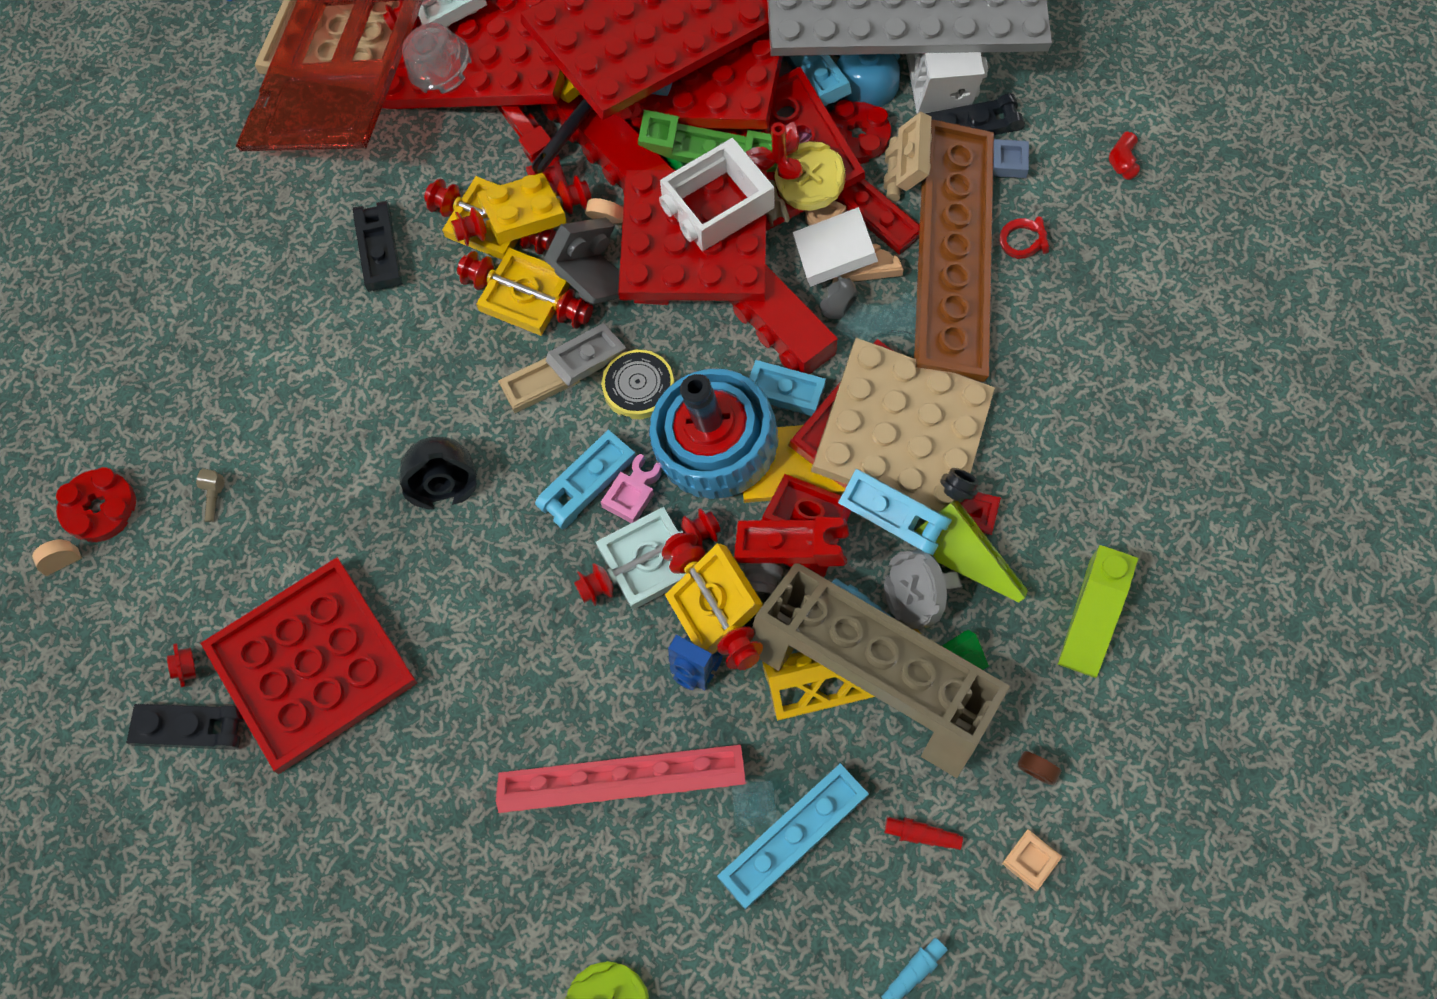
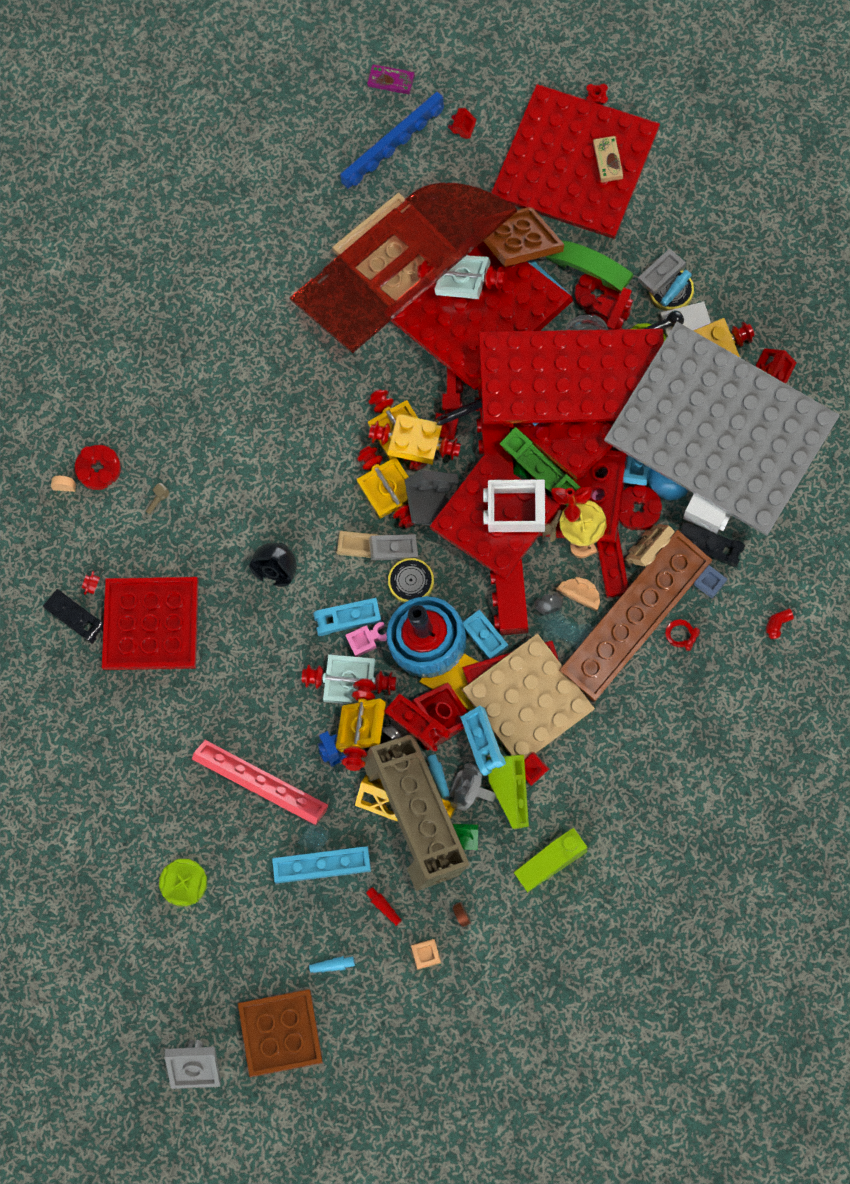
camera: 40 degrees right, 5 degrees up
(377, 246) = (328, 407): black plate -> none
(435, 58) = (427, 317): clear cone -> none
(603, 208) = (459, 468): light nougat tile -> none
(834, 247) = (569, 572): white tile -> none
(959, 485) = (528, 749): black plate -> none

